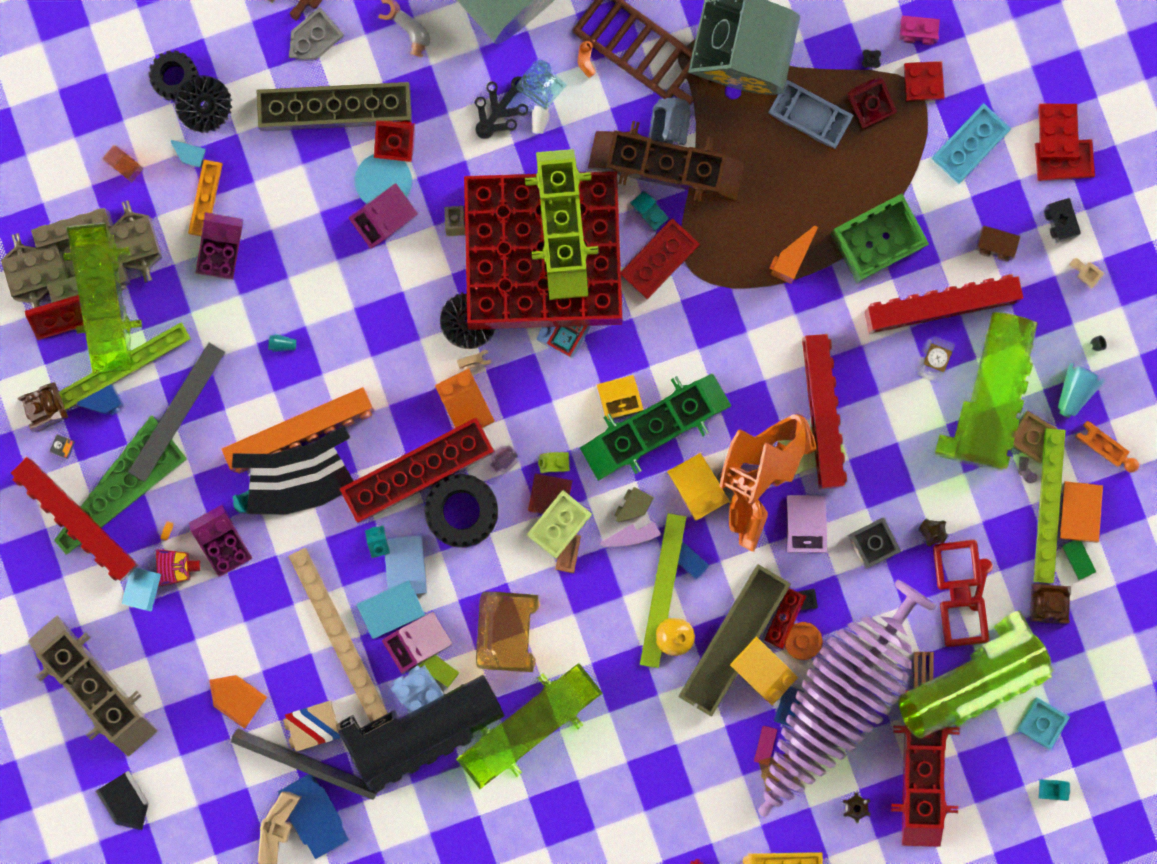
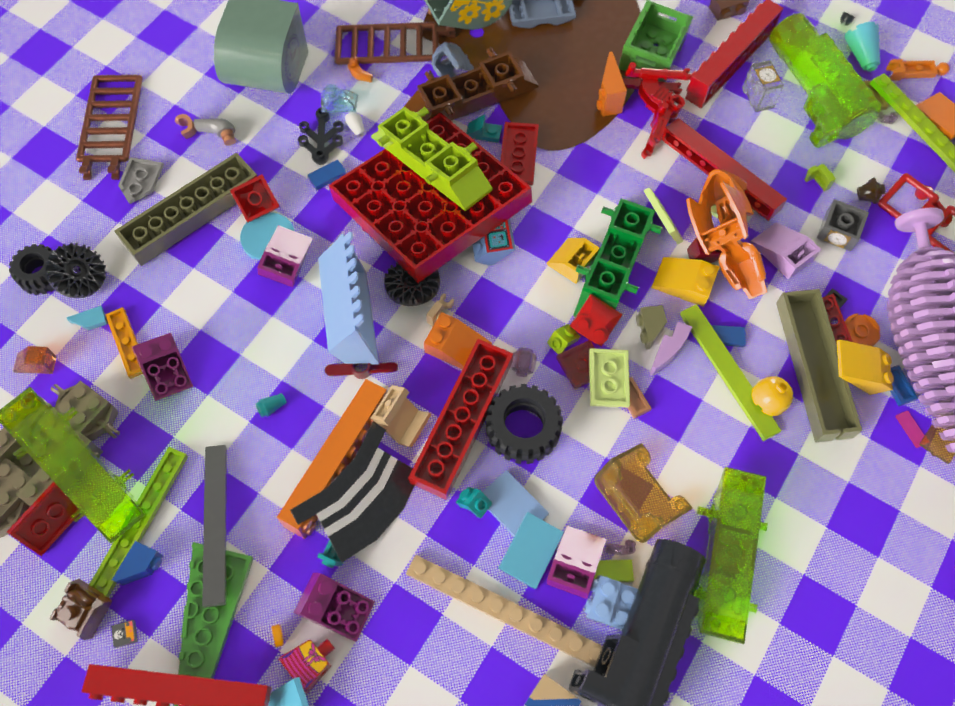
camera: 40 degrees left, 20 degrees down
(363, 357) = (349, 369): none -> dark red piece
(370, 435) = (400, 417): none -> tan panel
(396, 308) = (347, 304): none -> light blue piece
(454, 221) = (347, 224): olive slope -> none
(457, 660) = (616, 549): none -> clear purple arm
(477, 153) = (326, 174): none -> blue tile
(587, 469) = (596, 320): none -> red slope
(727, 418) = (663, 216): none -> yellowish green tile
(825, 303) = (657, 98): none -> red piece
(907, 488) = (821, 175): none -> lime bracket

